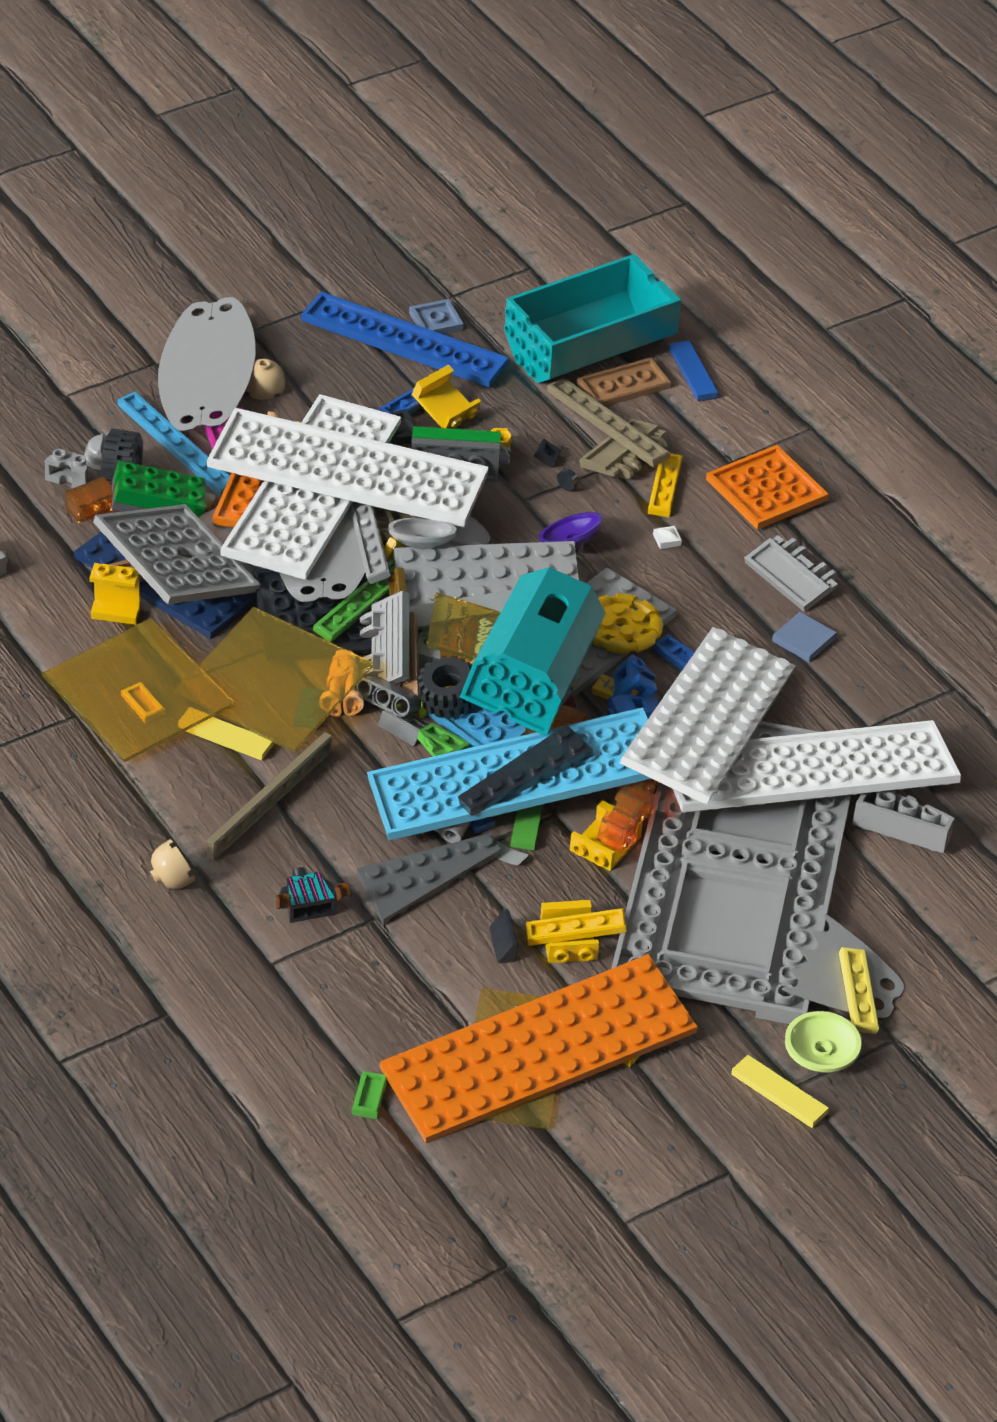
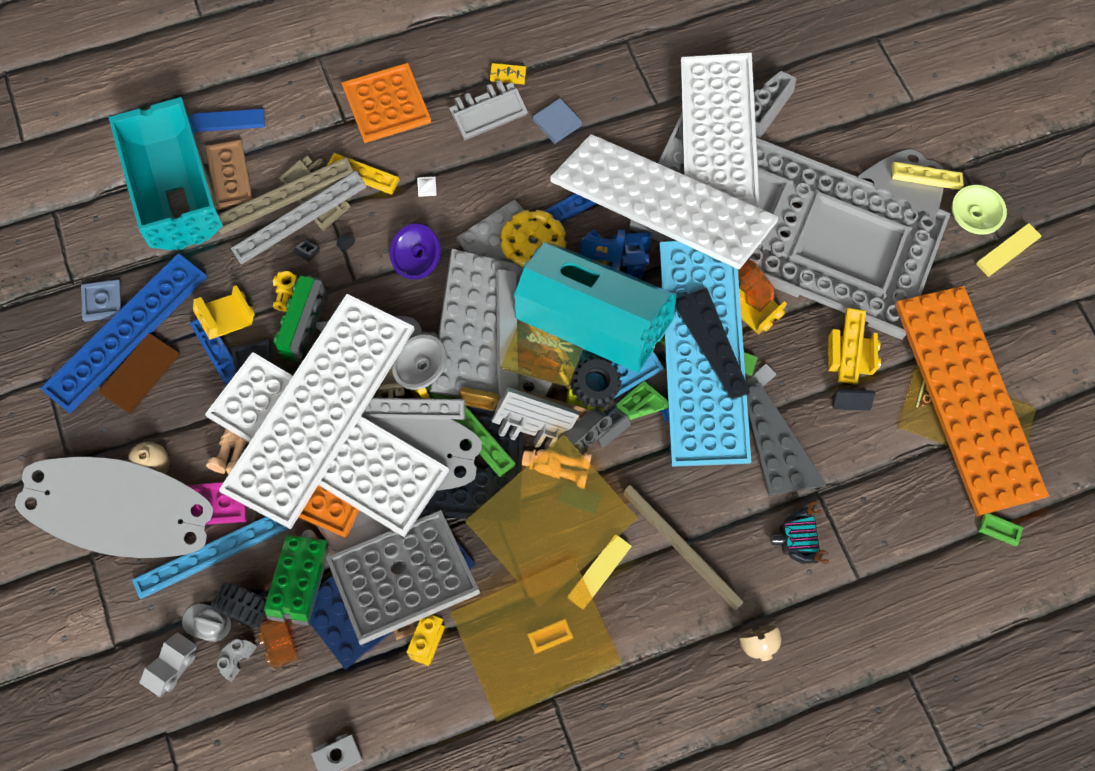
camera: 80 degrees left, 25 degrees up
(50, 430) = (173, 660): none -> light grey brick
(360, 358) = (139, 373): none -> reddish brown tile
(585, 437) = (298, 217): none -> light grey tile
(854, 585) = (508, 73): none -> yellow tile

